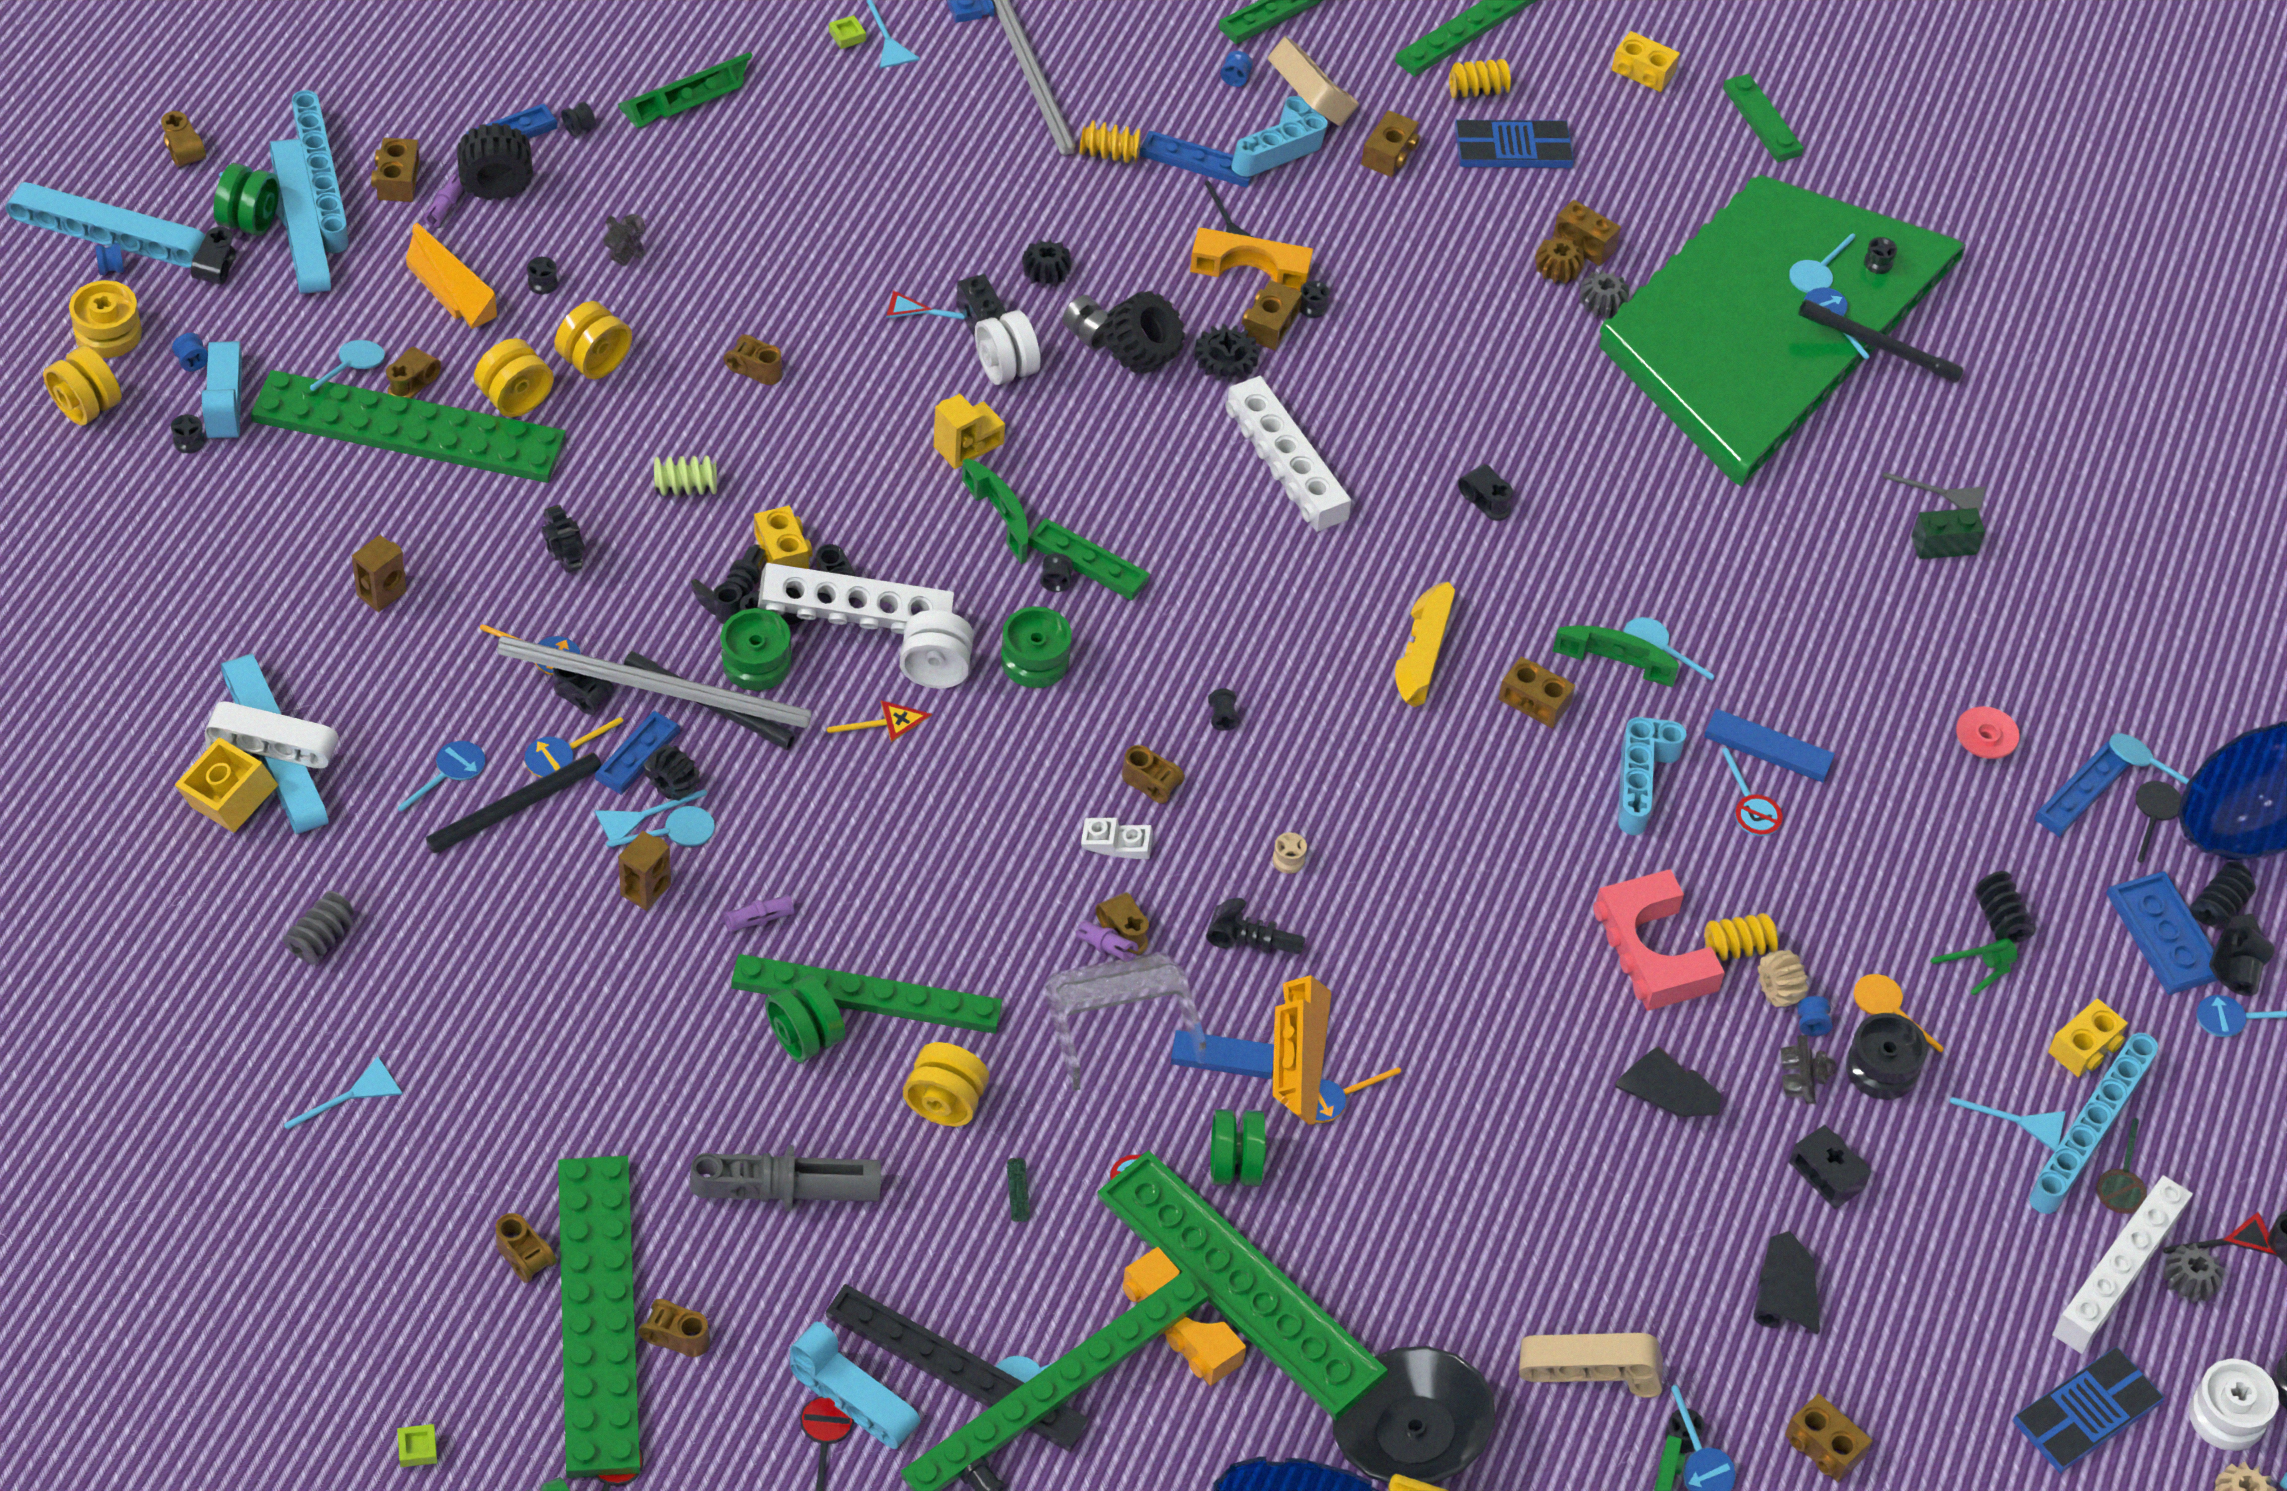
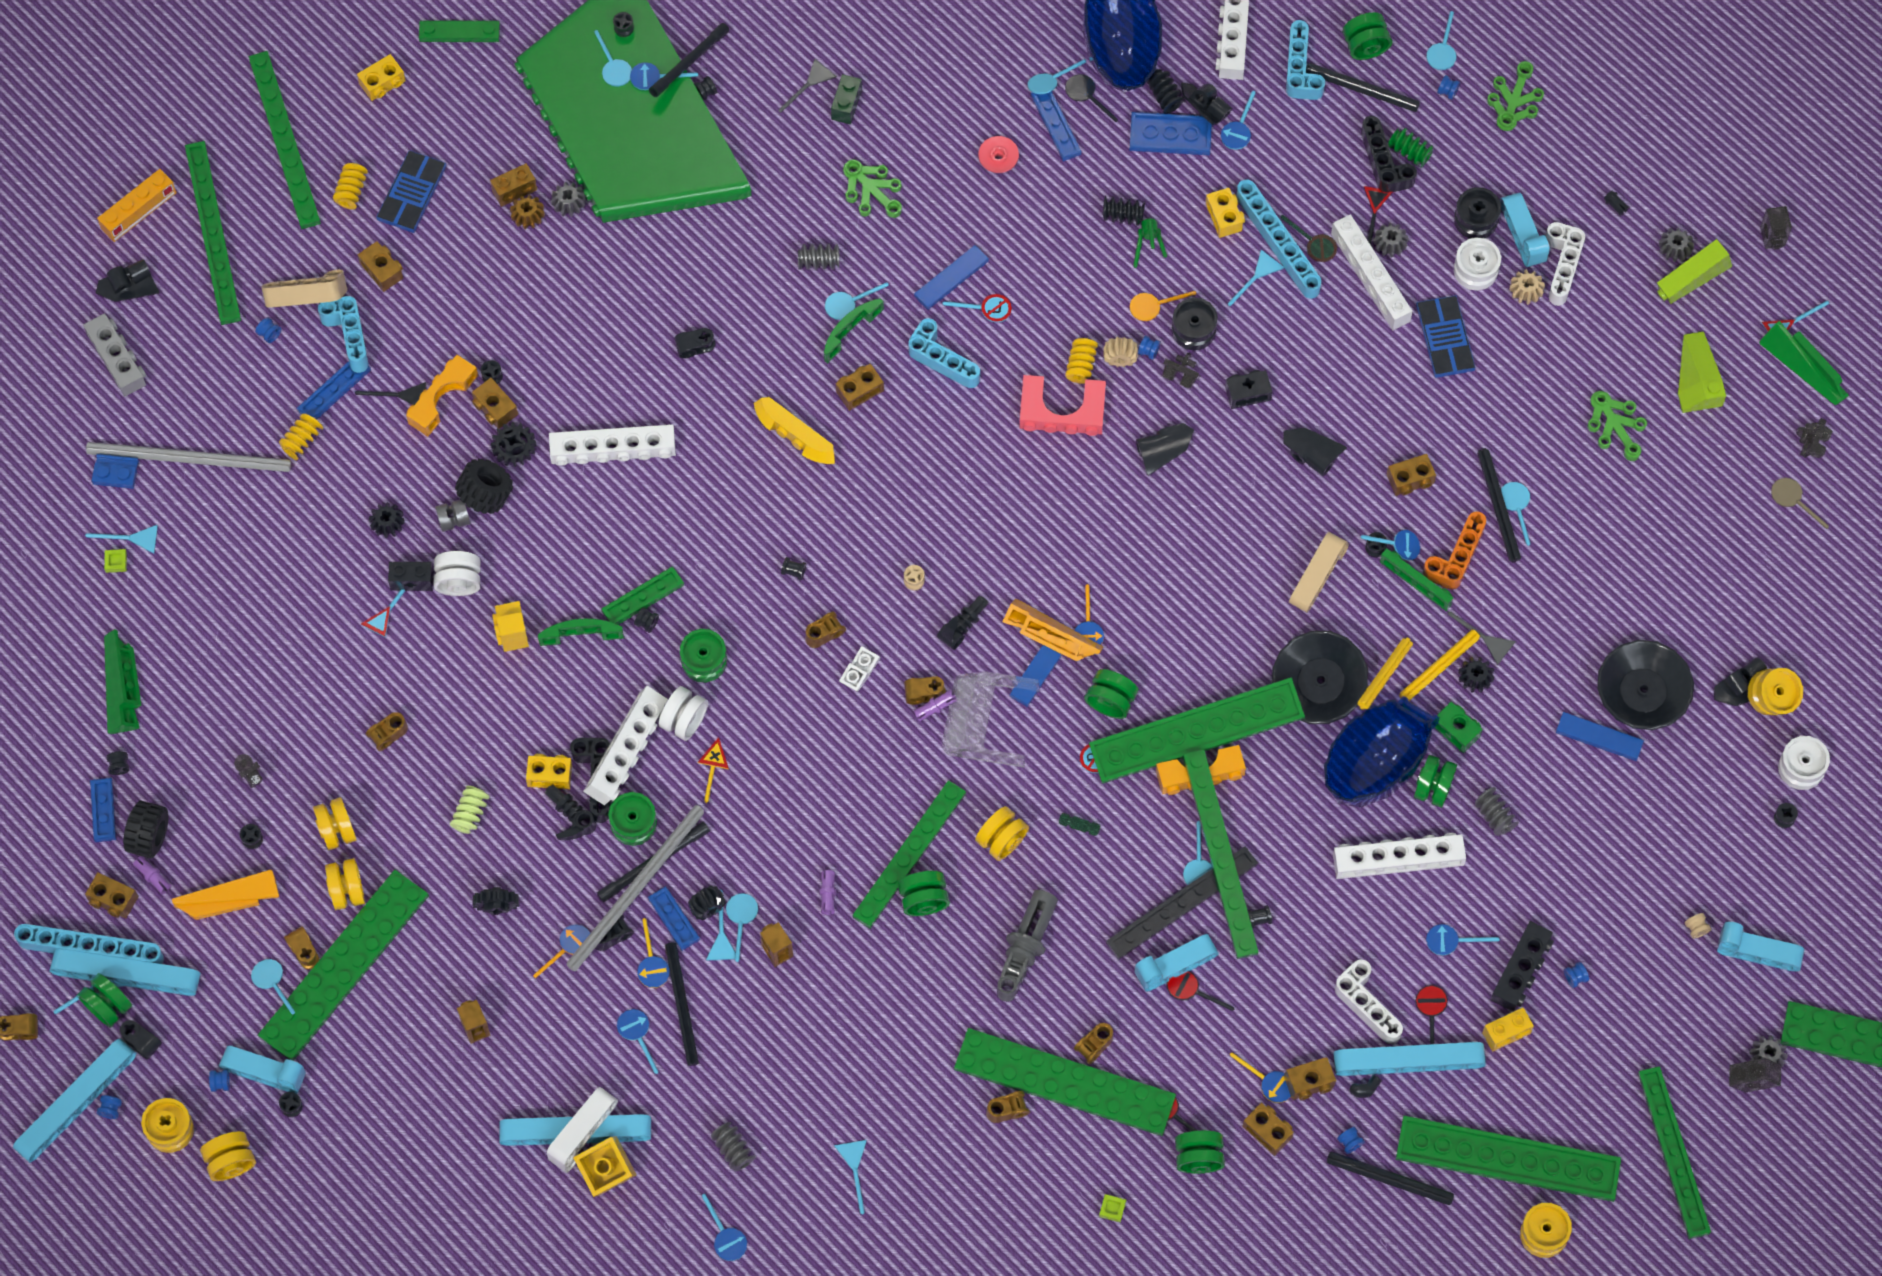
camera: 60 degrees left, 15 degrees up
(180, 980) = (730, 1242): none -> blue piece
(1696, 579) = (818, 256): none -> flat silver piece
(1852, 581) = (871, 186): none -> bright green plant
(1857, 380) = (706, 87): none -> black wheel

